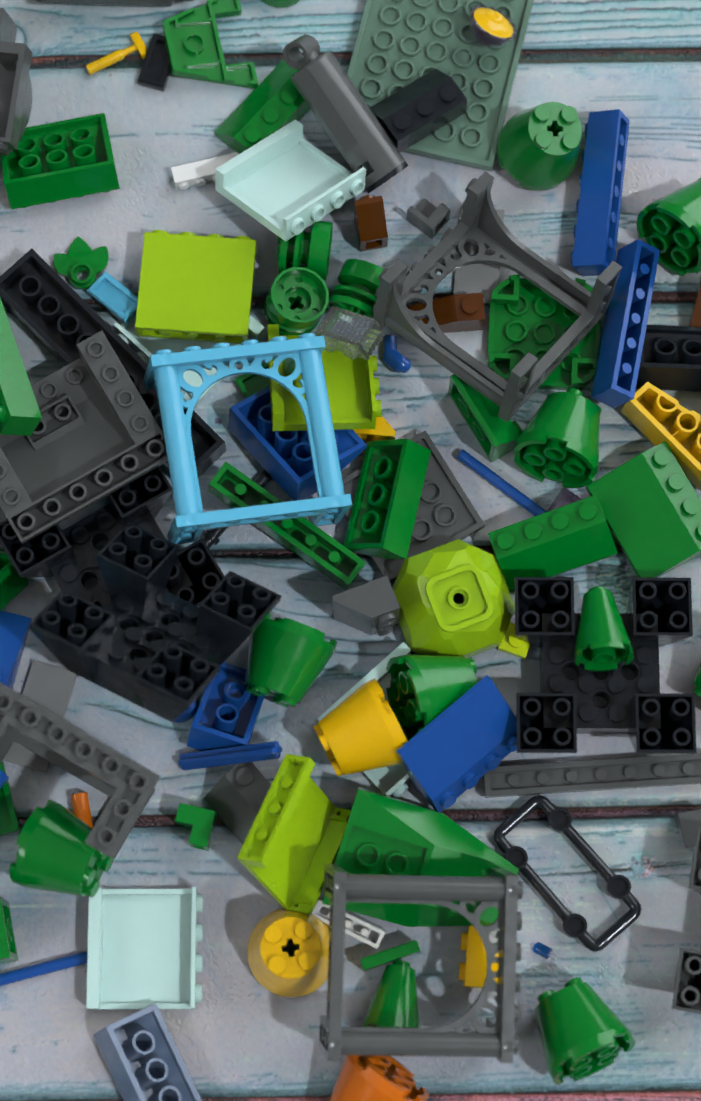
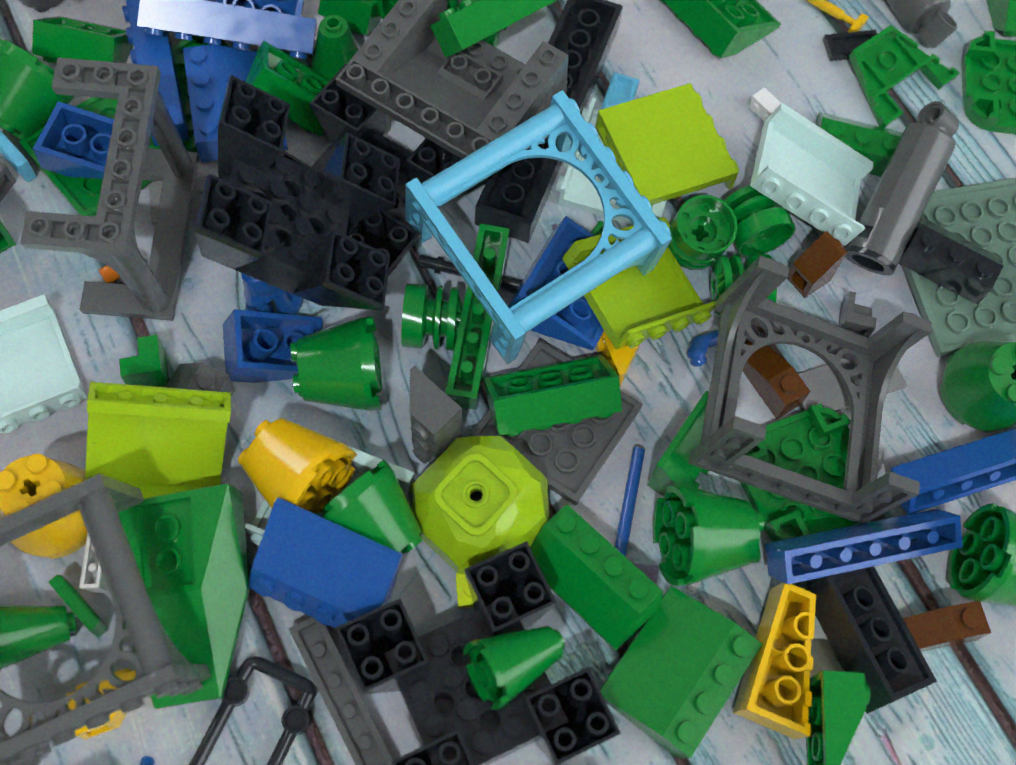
camera: 60 degrees right, 10 degrees down
(55, 854) = (57, 273): green cone -> none
(81, 260) = (637, 60): green plate -> none
(230, 755) = (223, 360): blue axle -> none
(271, 561) = (430, 317): none -> green wheel
(350, 333) = (696, 286): clear brick -> none

